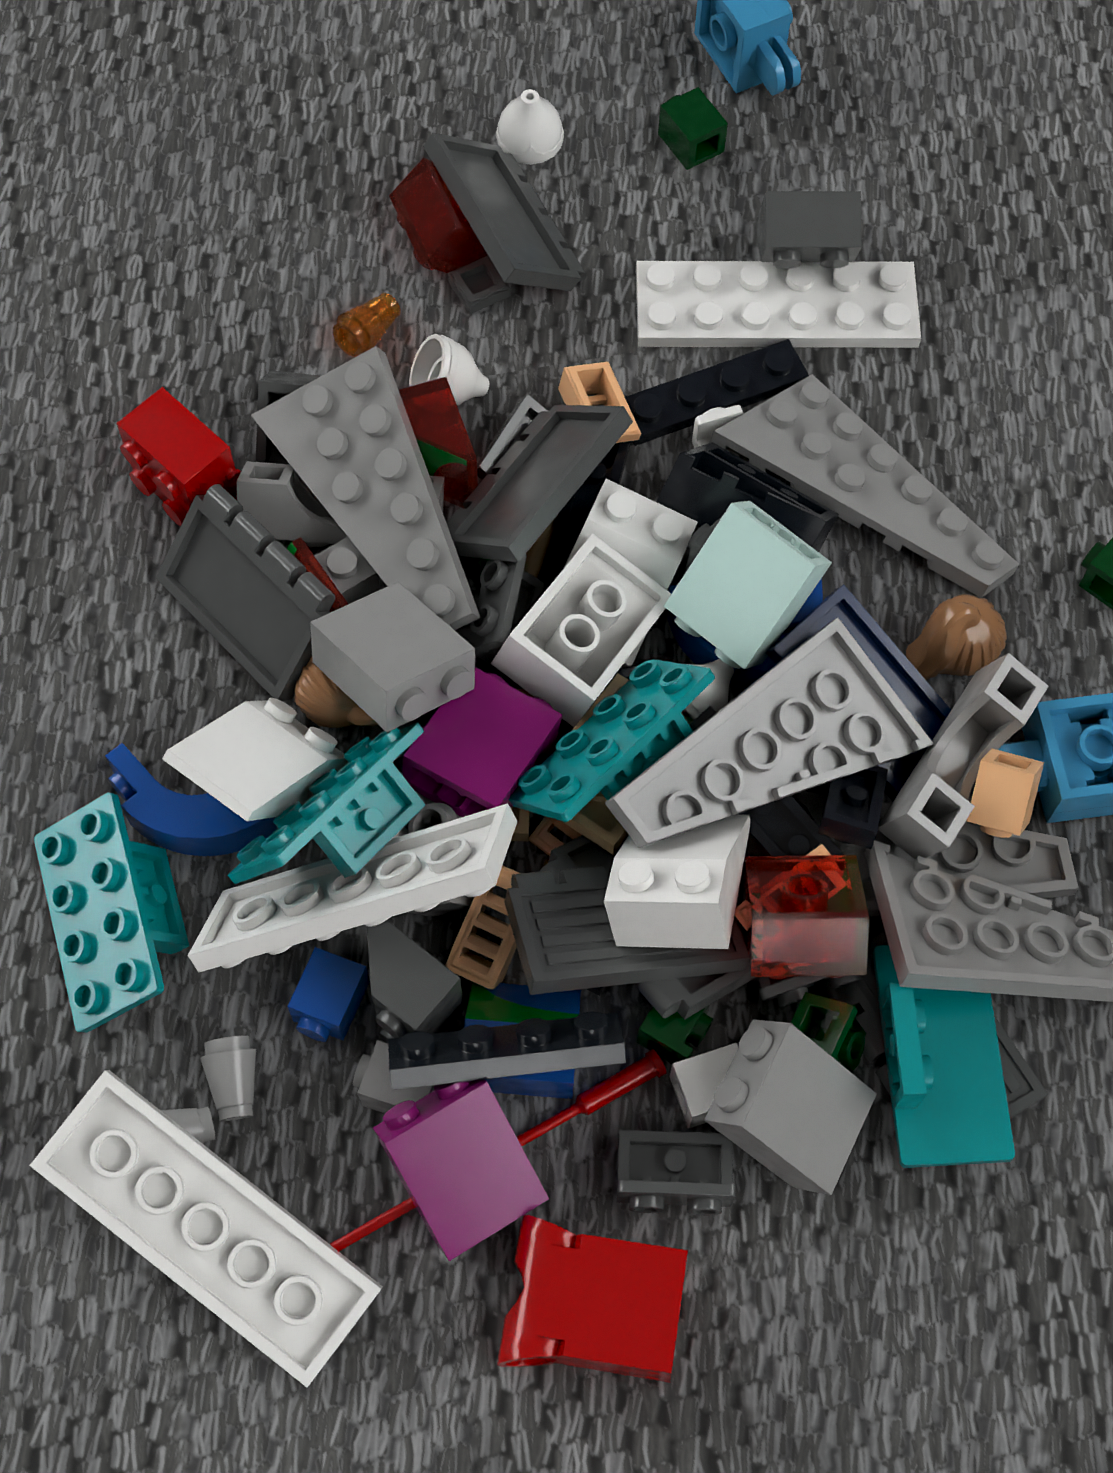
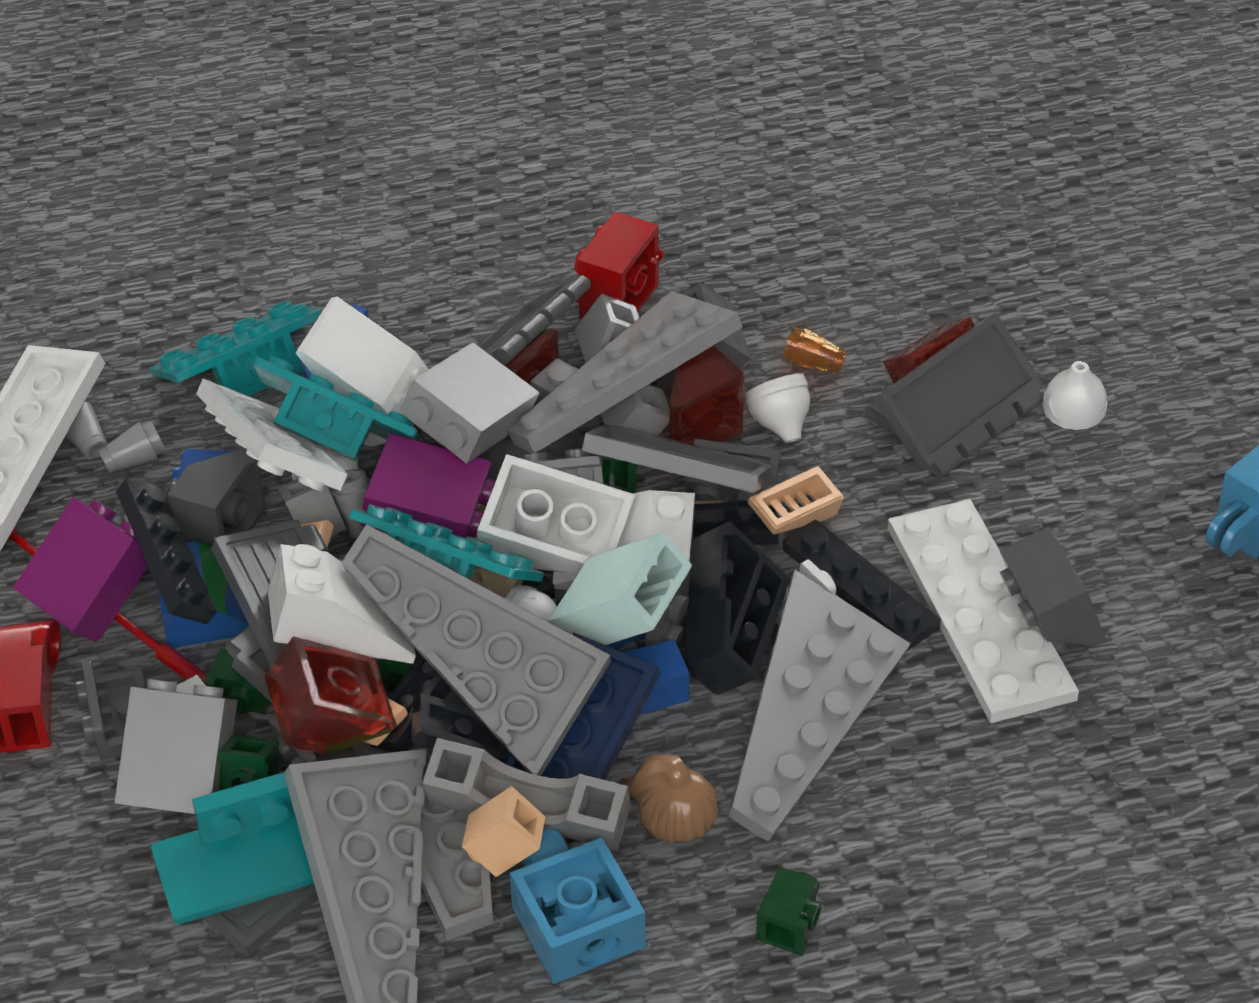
camera: 75 degrees right, 20 degrees down
(692, 128) = (1137, 499): dark green brick -> none

